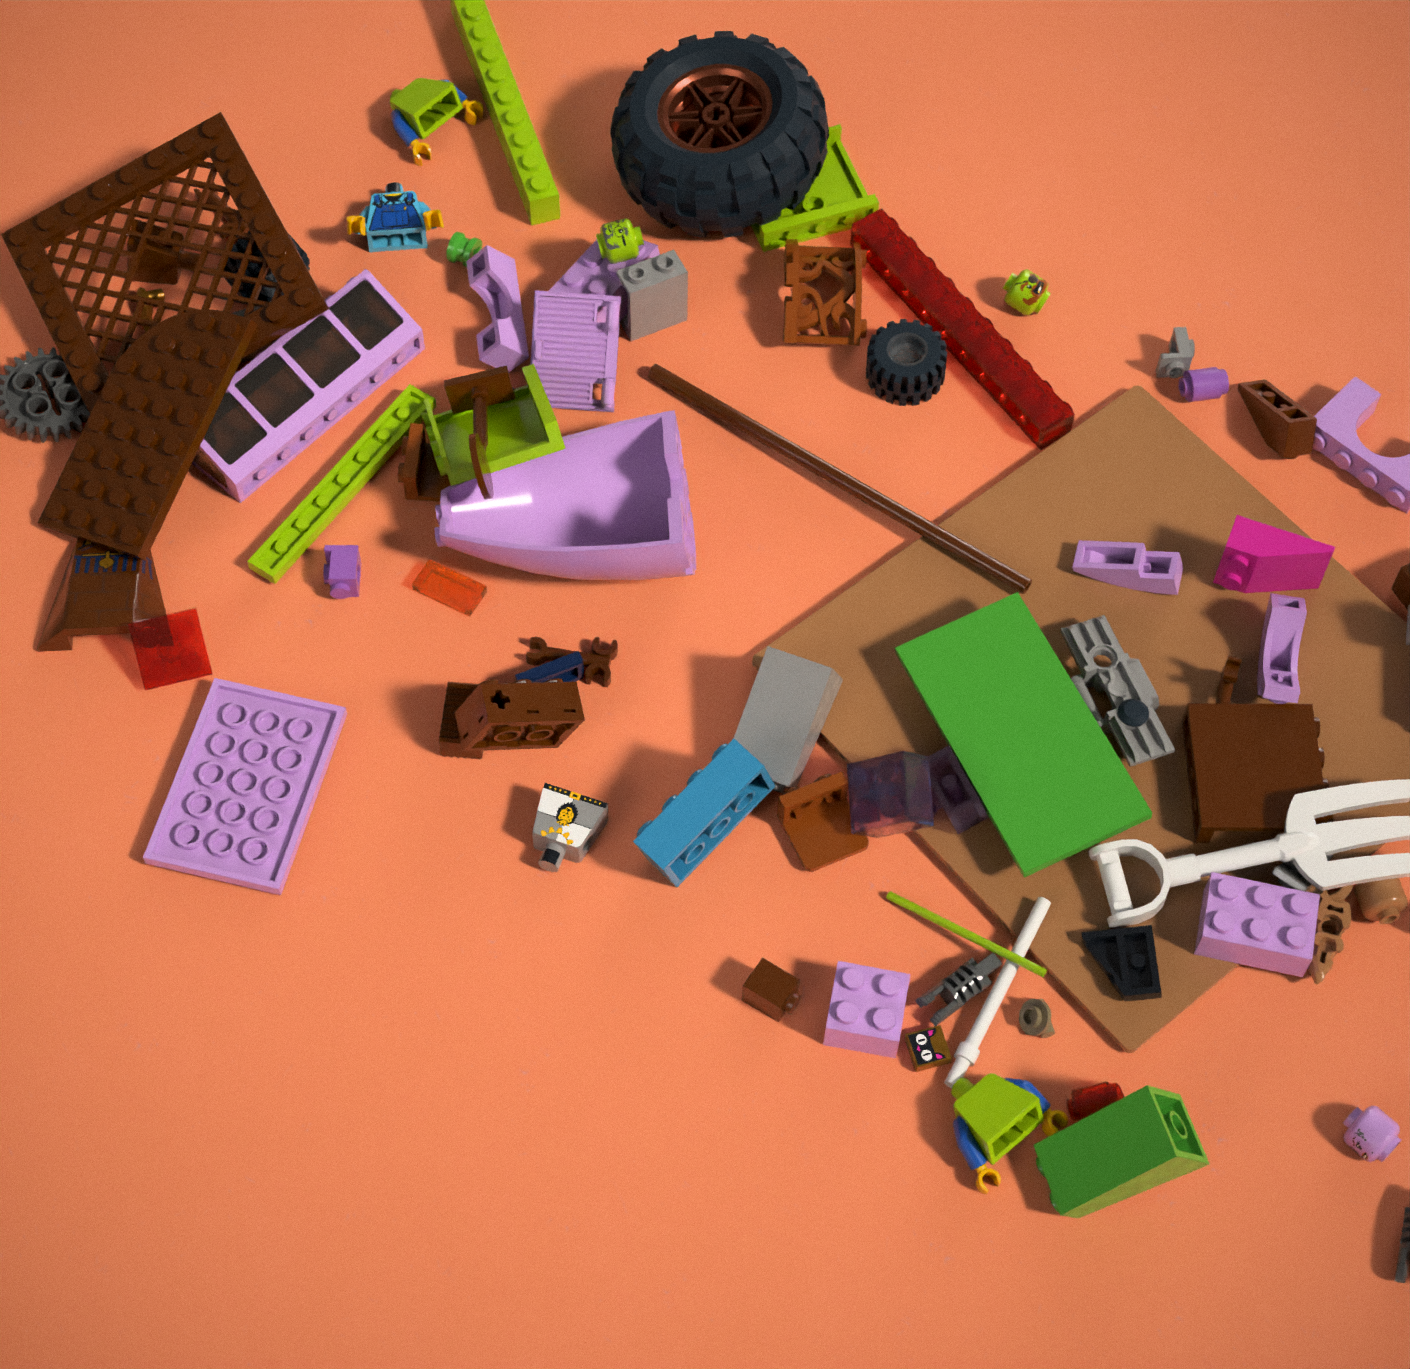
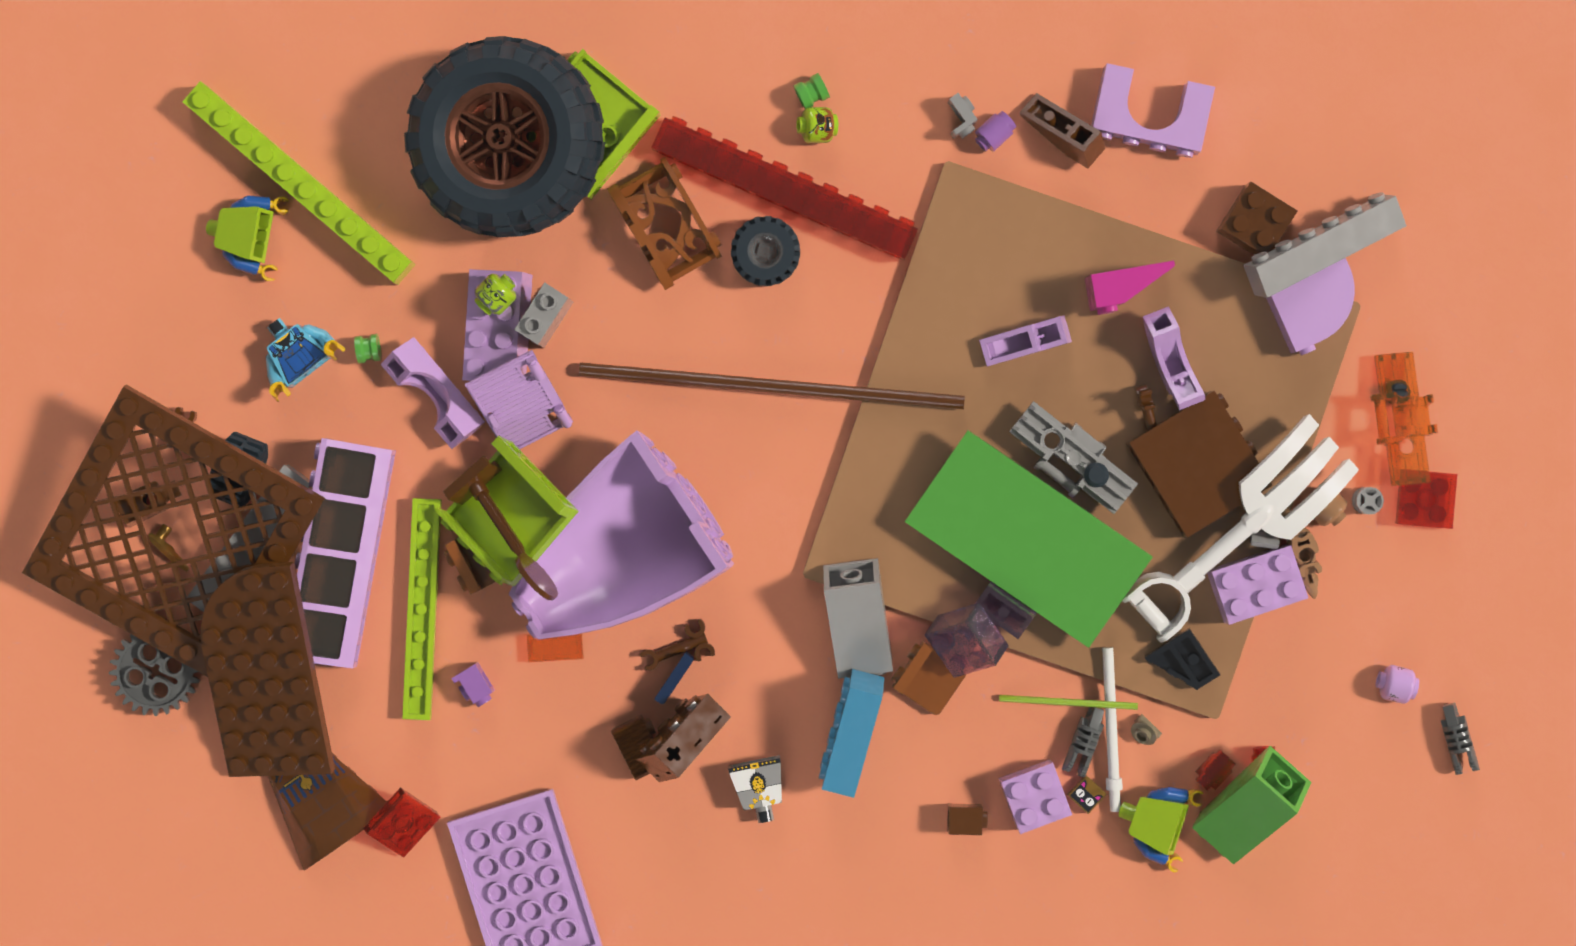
camera: 20 degrees left, 30 degrees up
(1039, 263) = (811, 91): none -> bright green wheel

